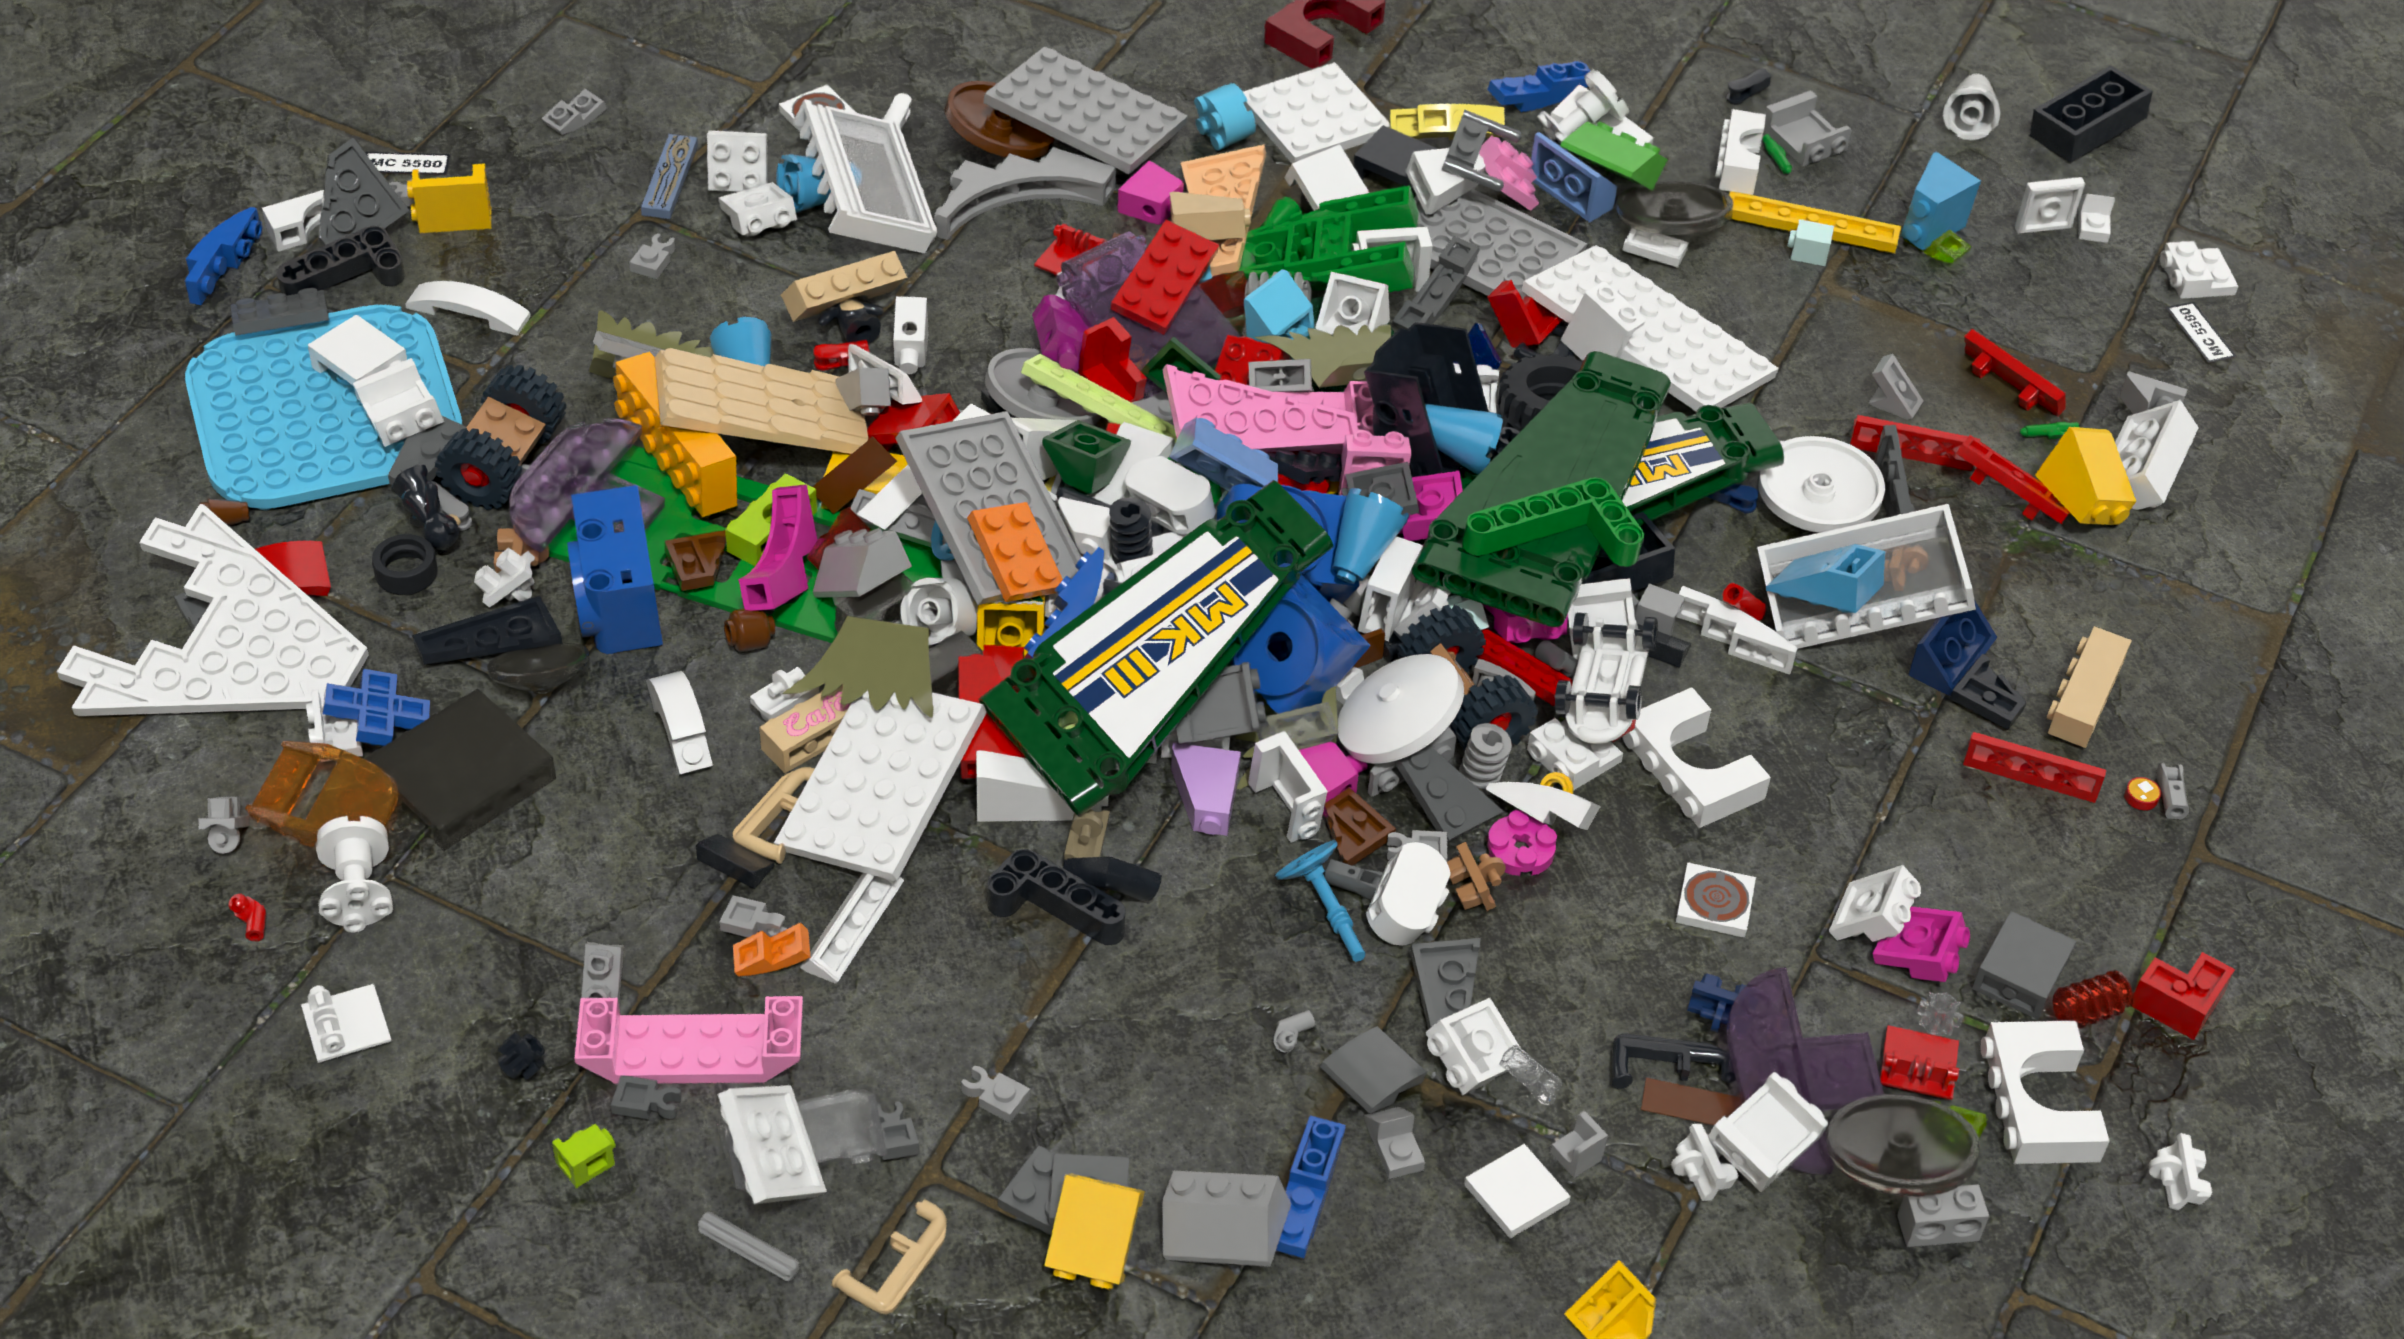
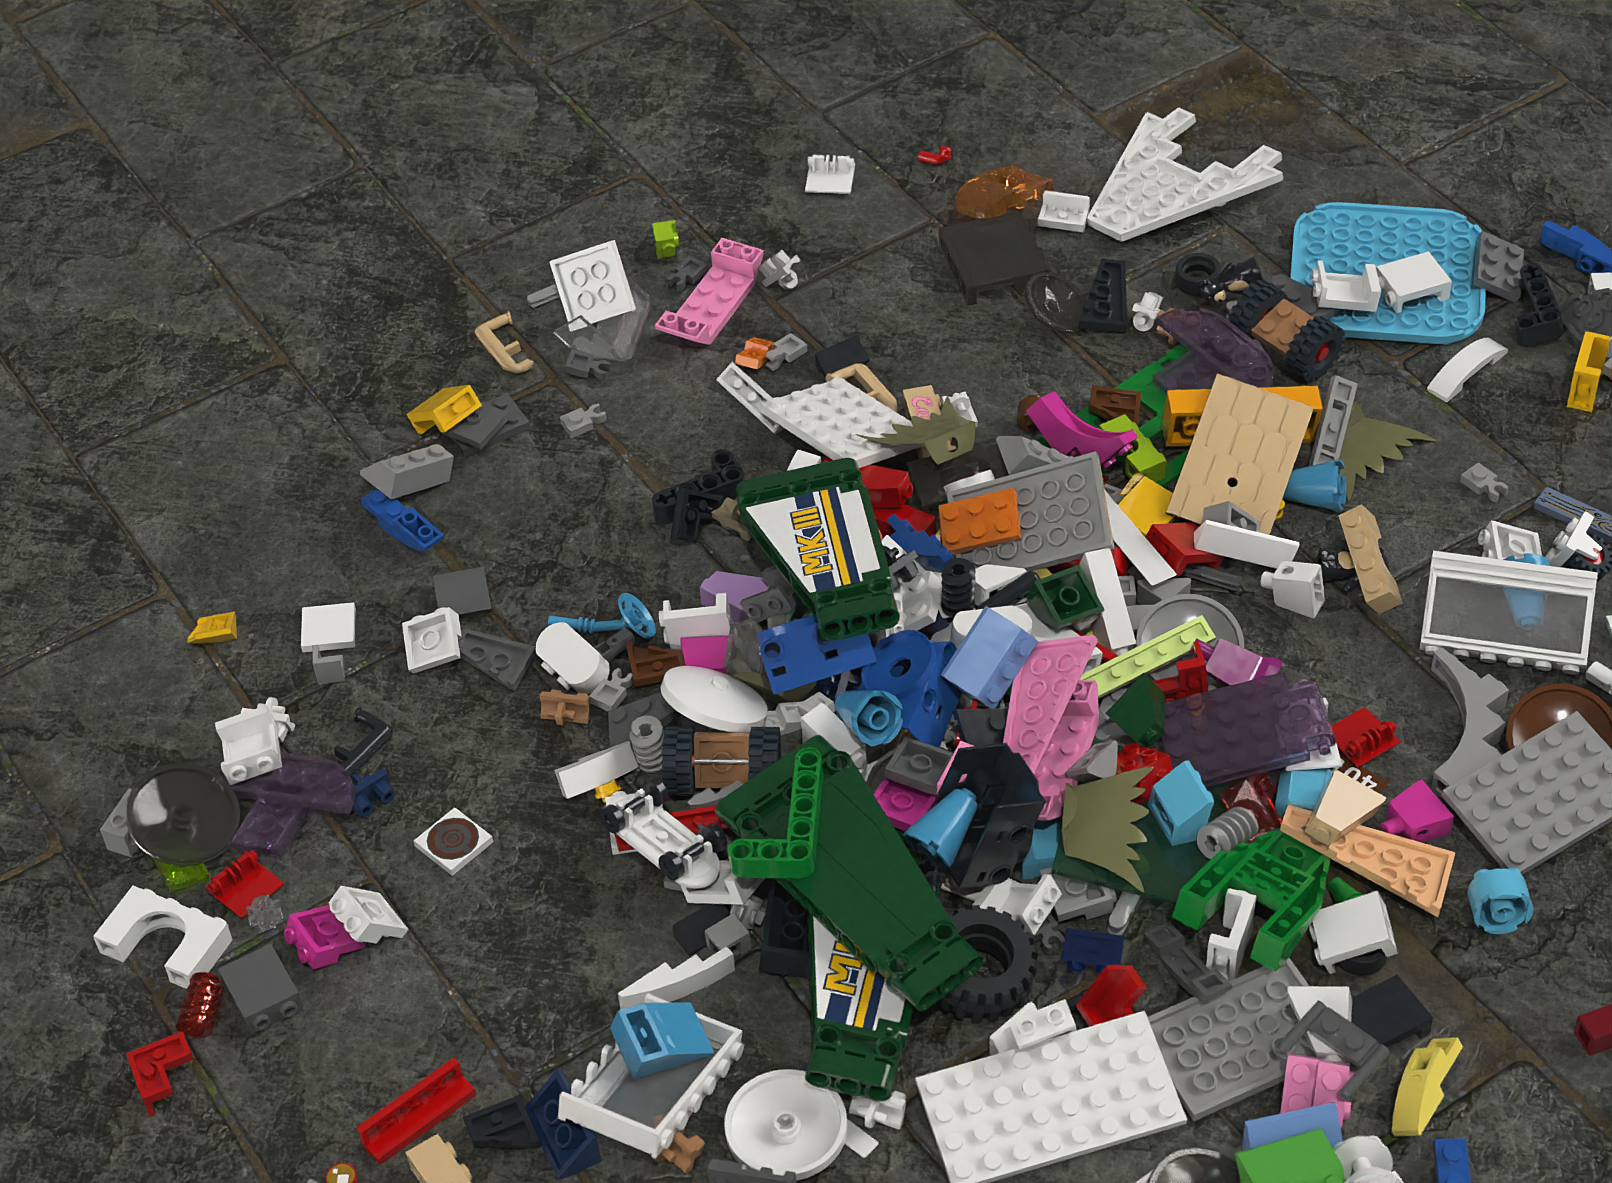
camera: 125 degrees right, 0 degrees up
(223, 820) = (1007, 150): light grey hips -> none
(228, 511) = (1297, 202): reddish brown cone -> none
(301, 563) = (1223, 226): slope -> none
(352, 852) = (935, 189): white piece -> none
(375, 707) = (1064, 228): blue plate -> none
(521, 1056) = (743, 231): black gear -> none
(600, 561) = (1107, 337): blue piece -> none
(682, 719) = (972, 348): white arch -> none
(834, 355) = (1307, 546): red bar -> none
(1164, 277) = (1259, 736): red plate -> none
(1287, 1030) = (522, 566): light grey arm -> none
(1314, 112) = (1499, 996): white plate -> none
(1353, 304) = (1167, 865): white slope -> none
(1395, 1141) = (410, 583): light grey slope -> none
(1526, 829) = (572, 741): dark pink plate -> none
(1531, 1074) = (392, 662): clear bar -> none
(1687, 1102) = (325, 742): reddish brown sticker -> none
(1701, 793) = (545, 871): white arch -> none
(1743, 600) = (693, 986): red bar -> none
(2179, 1170) = (55, 987): white hips -> none

